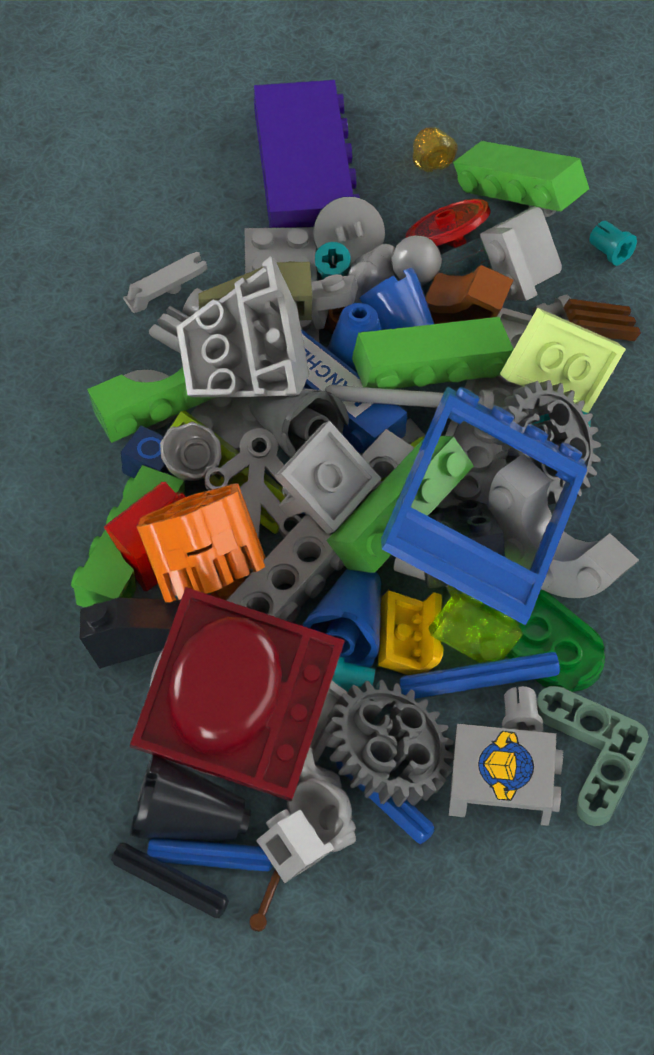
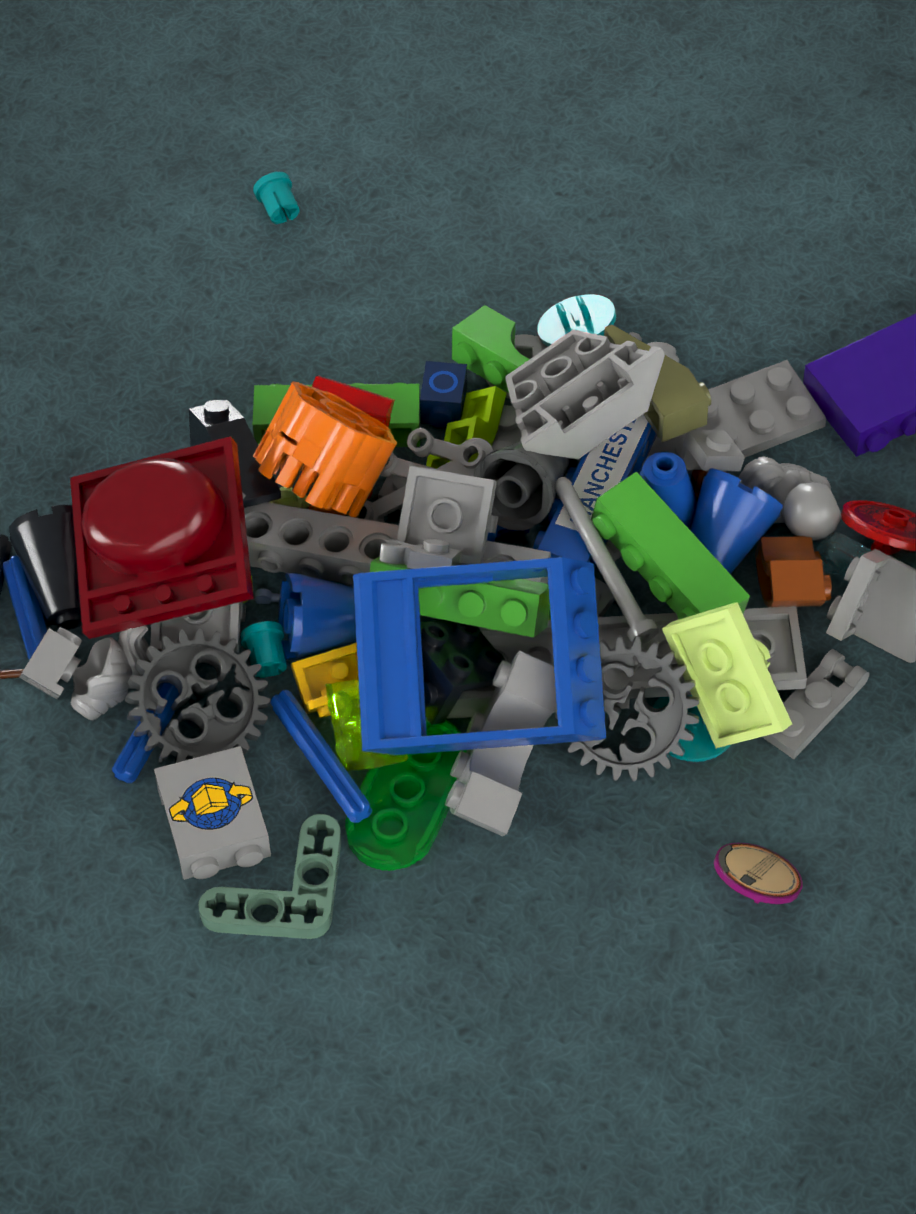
camera: 70 degrees right, 0 degrees up
(126, 343) = (581, 313): none -> piece
(164, 280) = (679, 322): light grey piece -> none
(190, 451) = (442, 407): light grey hair -> none
(323, 259) = (781, 438): teal bush -> none
(351, 223) = (831, 444): light grey piece -> none
(364, 504) = (423, 555): none -> light grey plate
(523, 714) = (292, 806): light grey bush -> none
(603, 318) = (853, 712): reddish brown tile -> none

